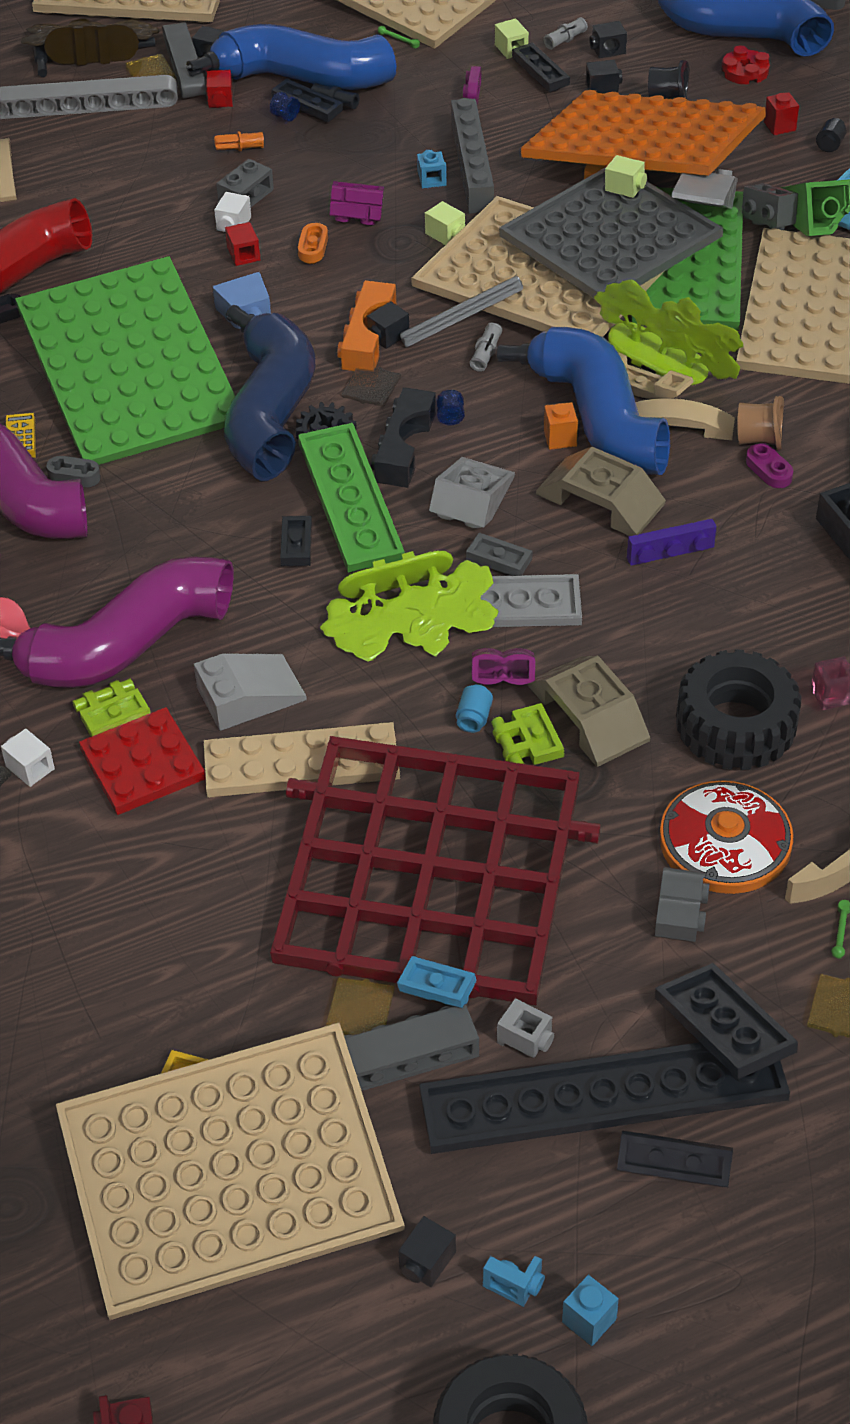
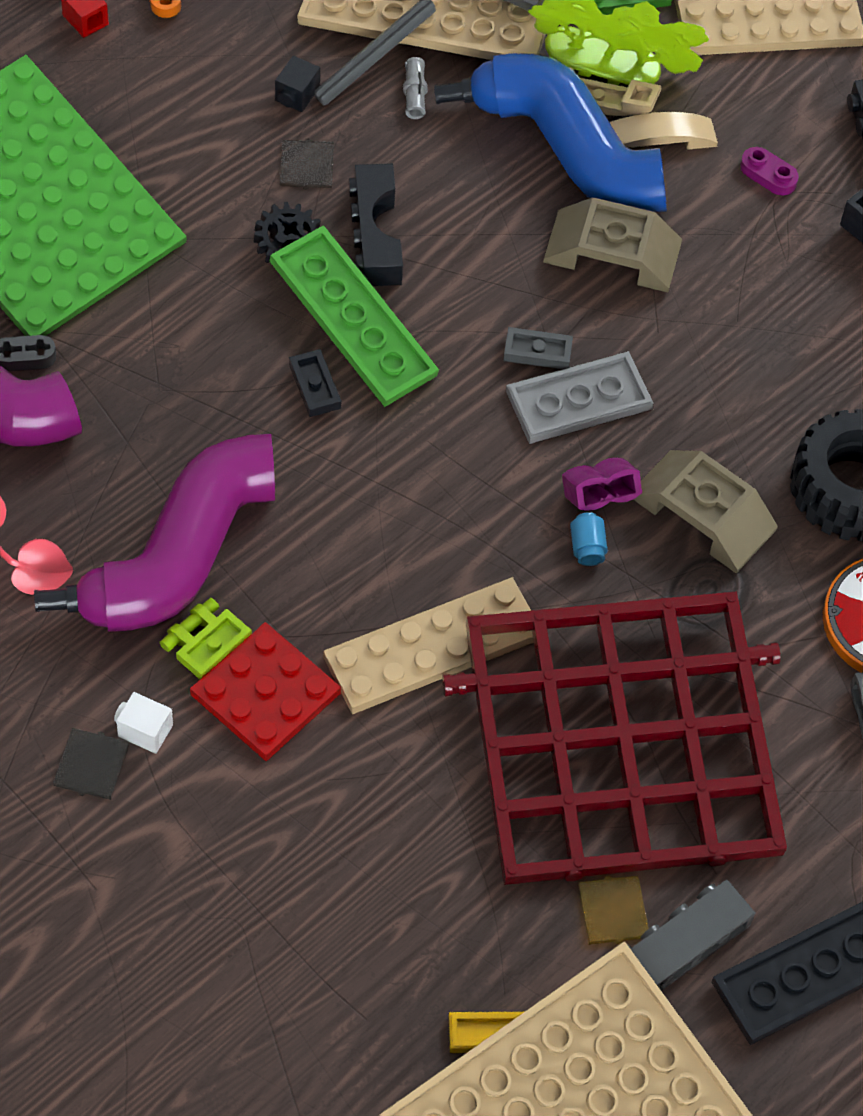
camera: 25 degrees left, 10 degrees up
(246, 292) = (121, 87): medium blue torso -> none
(246, 686) = (340, 575): light grey slope -> none
(270, 393) = (210, 201): dark blue animal -> none
(361, 345) = (279, 117): orange arch -> none
(417, 612) = (484, 439): lime plant -> none
(436, 982) = (691, 865): dark azure hinge -> none
(450, 407) = (410, 175): clear blue wheel -> none
(470, 492) = (477, 277): light grey slope -> none
(525, 1029) = (786, 877): light grey brick -> none
(536, 732) = (663, 551): lime plate -> none
(560, 425) = (539, 173): orange brick -> none
(671, 542) = (709, 290): dark purple plate -> none
(761, 422) = (748, 124): medium nougat piece -> none

